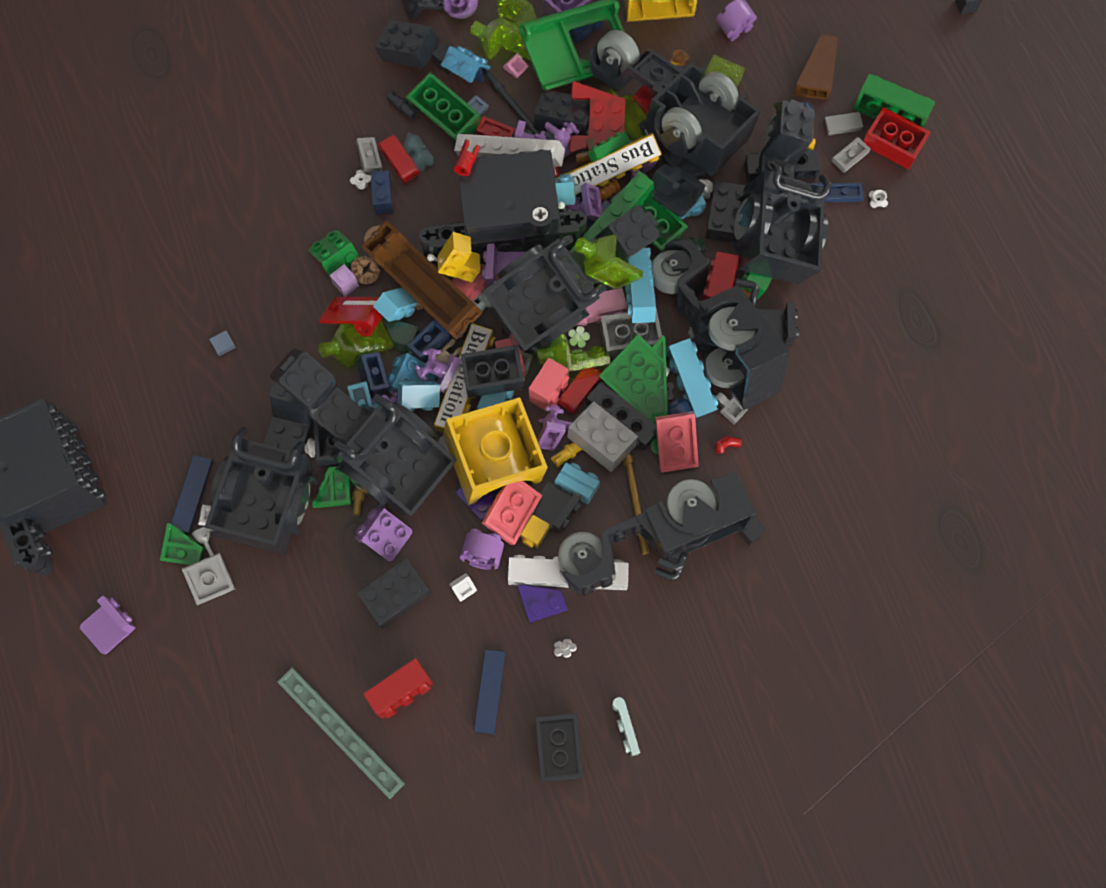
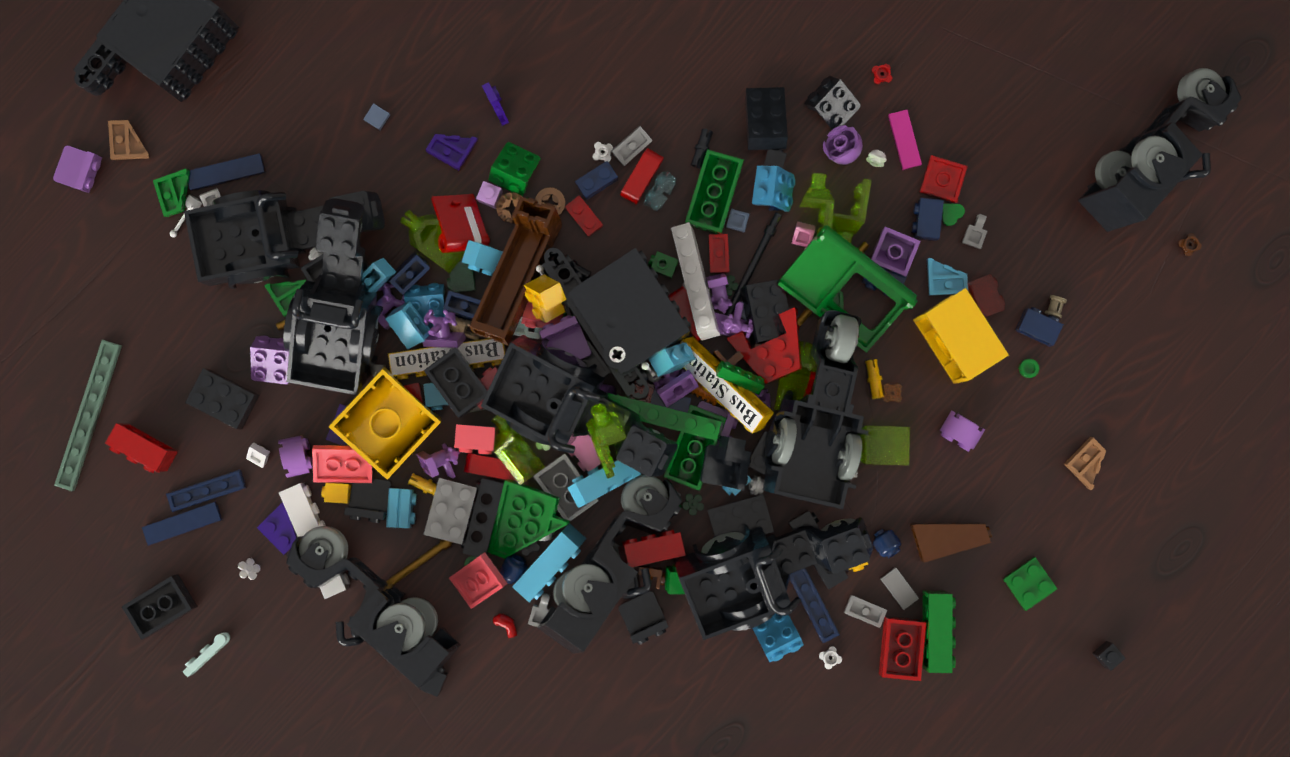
camera: 65 degrees right, 15 degrees up
(110, 570) = (124, 141): none -> medium nougat wing
(208, 578) = (158, 231): light grey tile -> none
(267, 238) = (494, 98): none -> dark purple wing
(287, 295) = (451, 149): none -> dark purple wing
(406, 218) = (583, 216): none -> red plate
(466, 159) = (633, 257): red hinge -> none
(470, 654) = (206, 490): none -> dark blue tile
(843, 227) = (778, 637): none -> dark azure bracket
(884, 31) = (1029, 583): none -> green plate

